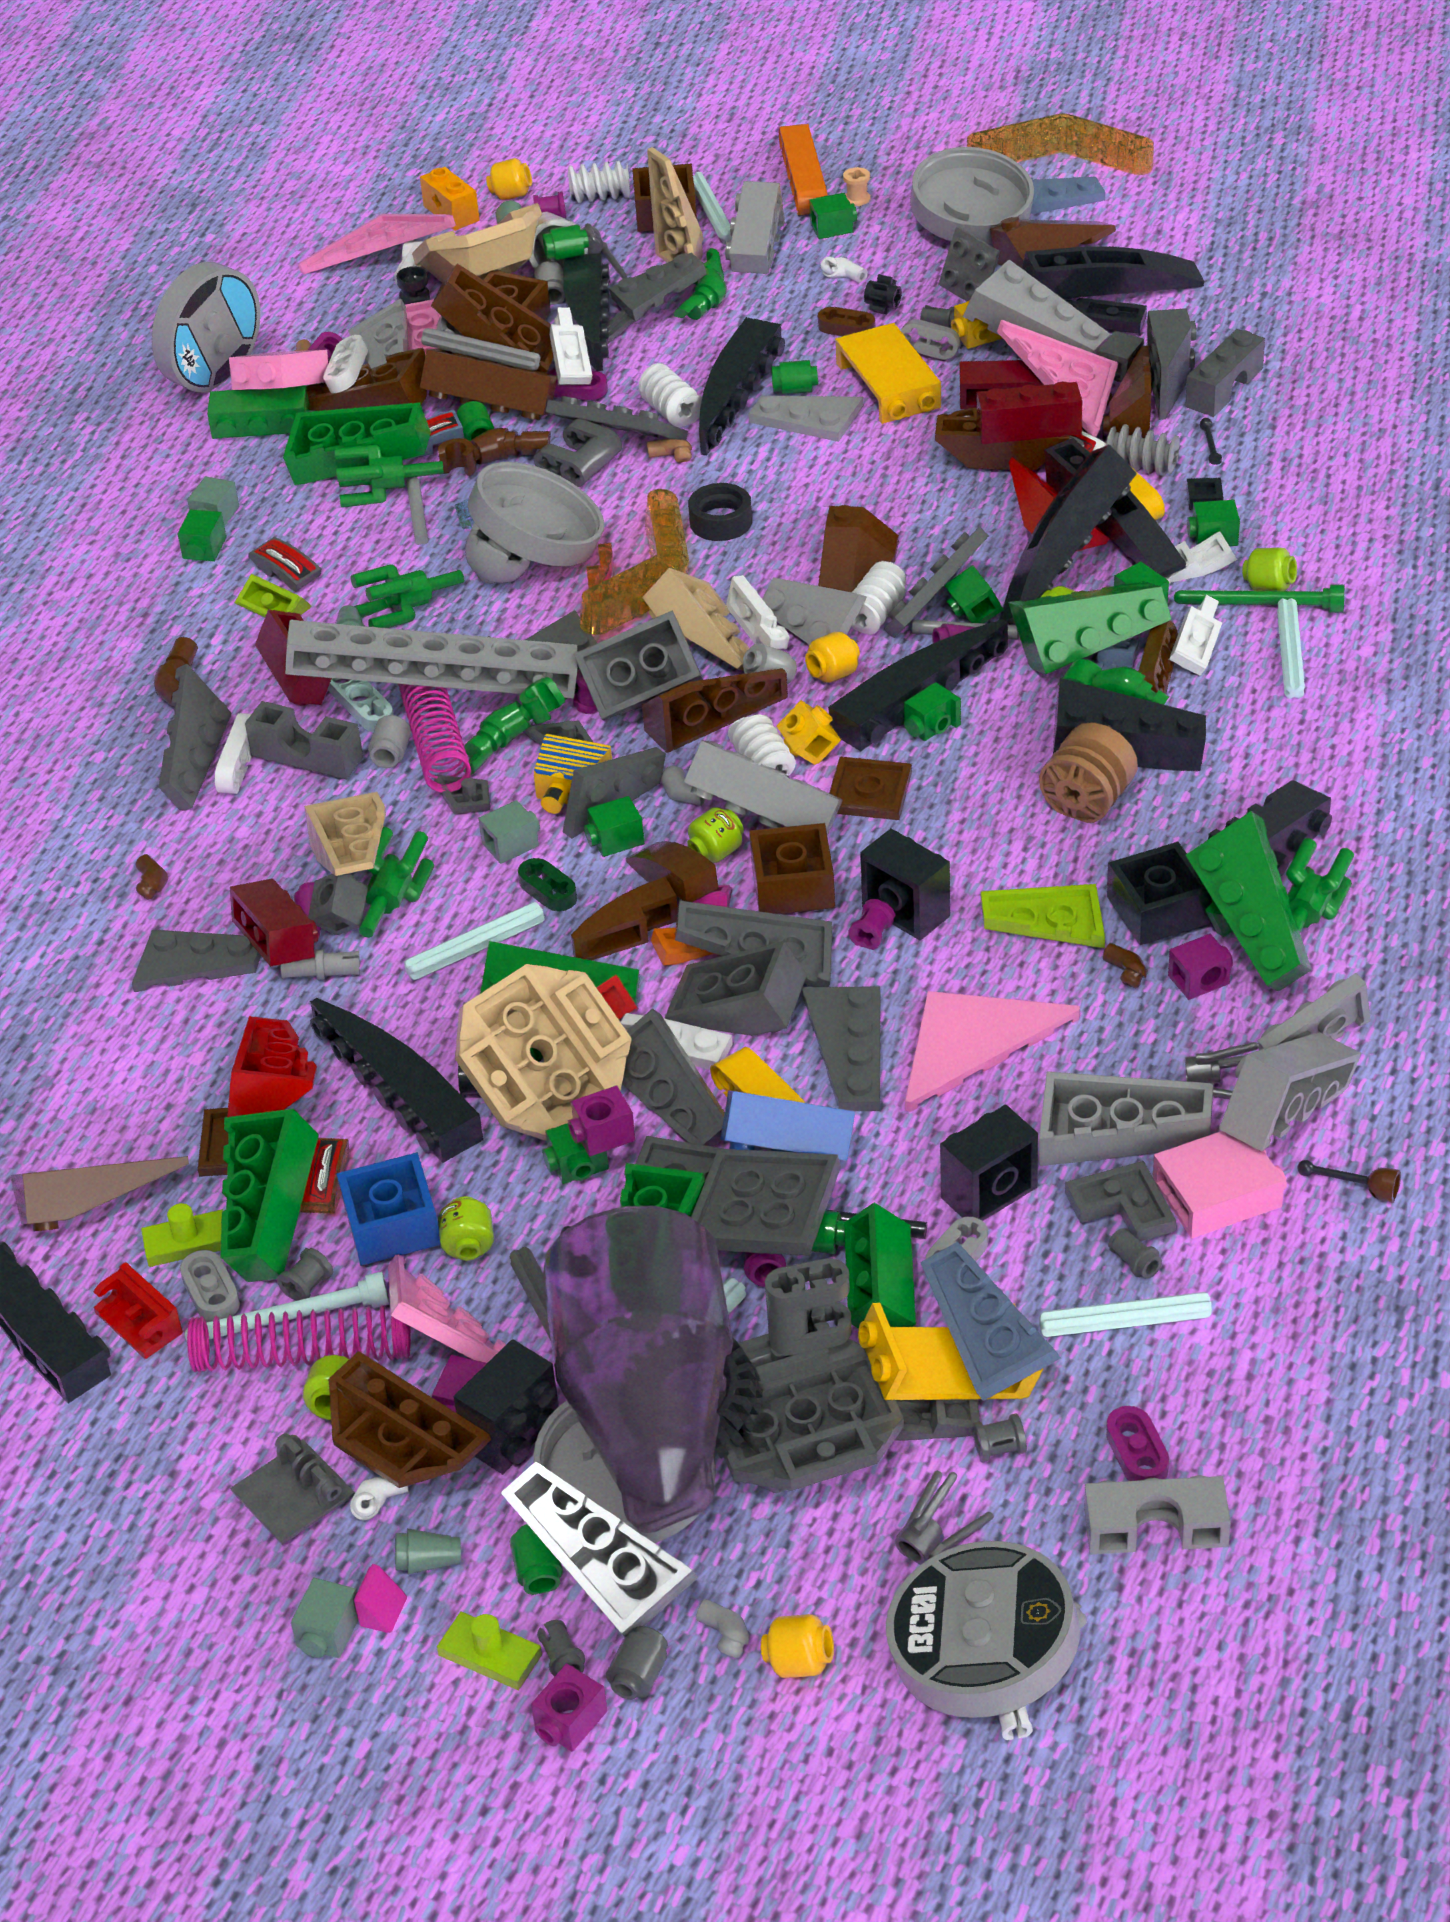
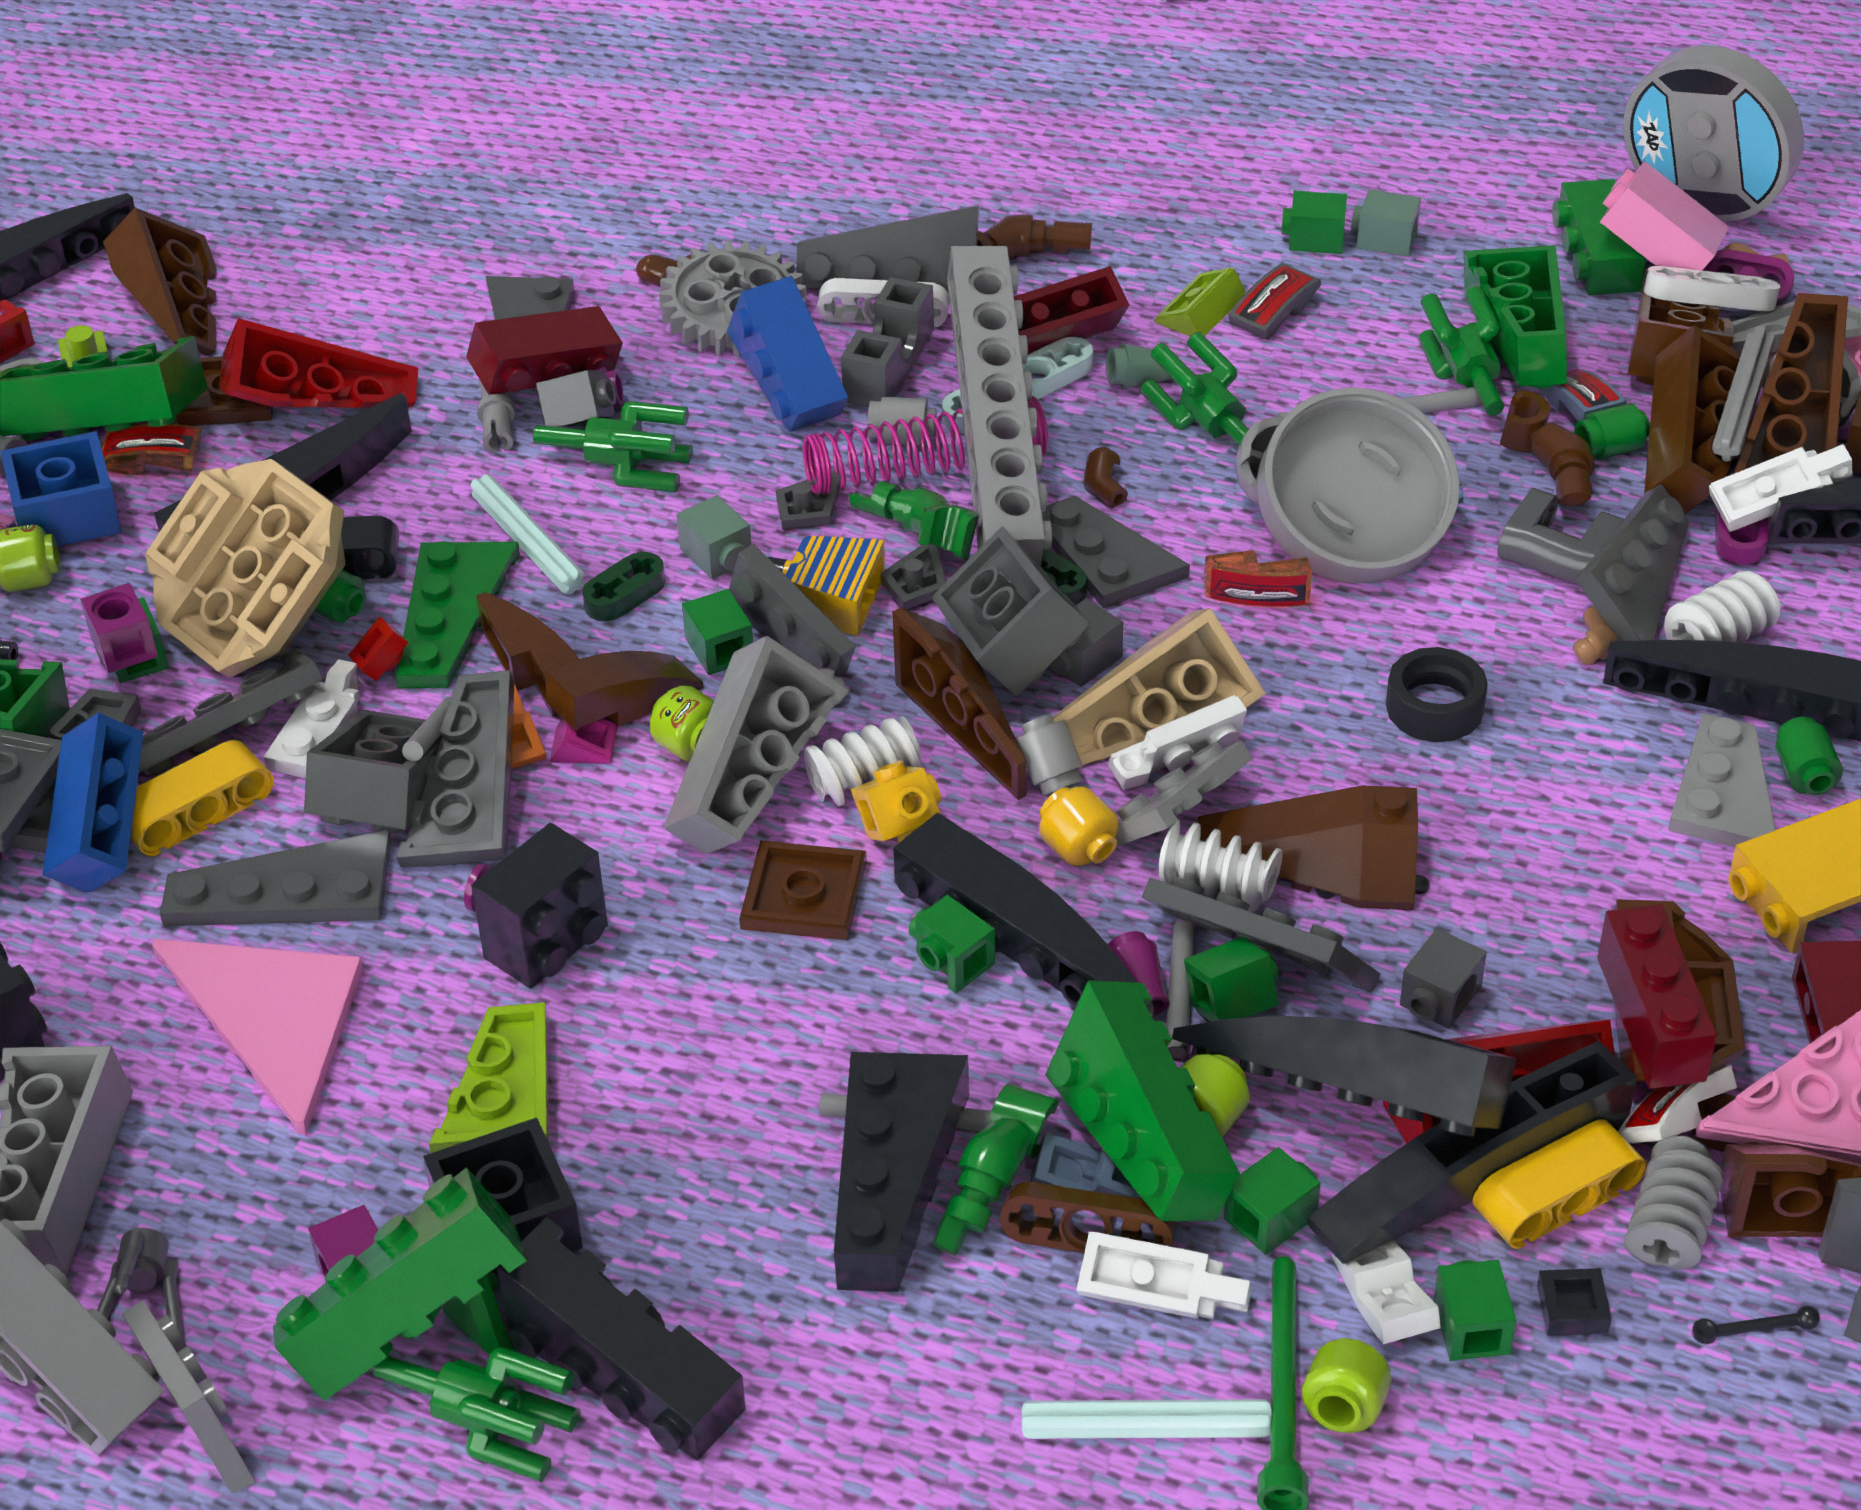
camera: 85 degrees right, 0 degrees up
(210, 833) = (705, 290): none -> light grey gear
(304, 778) = (786, 354): none -> blue wedge
(346, 832) = (693, 375): tan wedge -> none
(621, 596) = (1287, 643): clear yellow beam -> none
(715, 956) = (426, 733): none -> light grey bar
(792, 869) = (602, 792): reddish brown brick -> none
(968, 514) = (1442, 978): none -> dark grey brick
(1088, 772) = (771, 1109): medium nougat wheel -> none
(1129, 961) = (385, 1185): reddish brown arm -> none

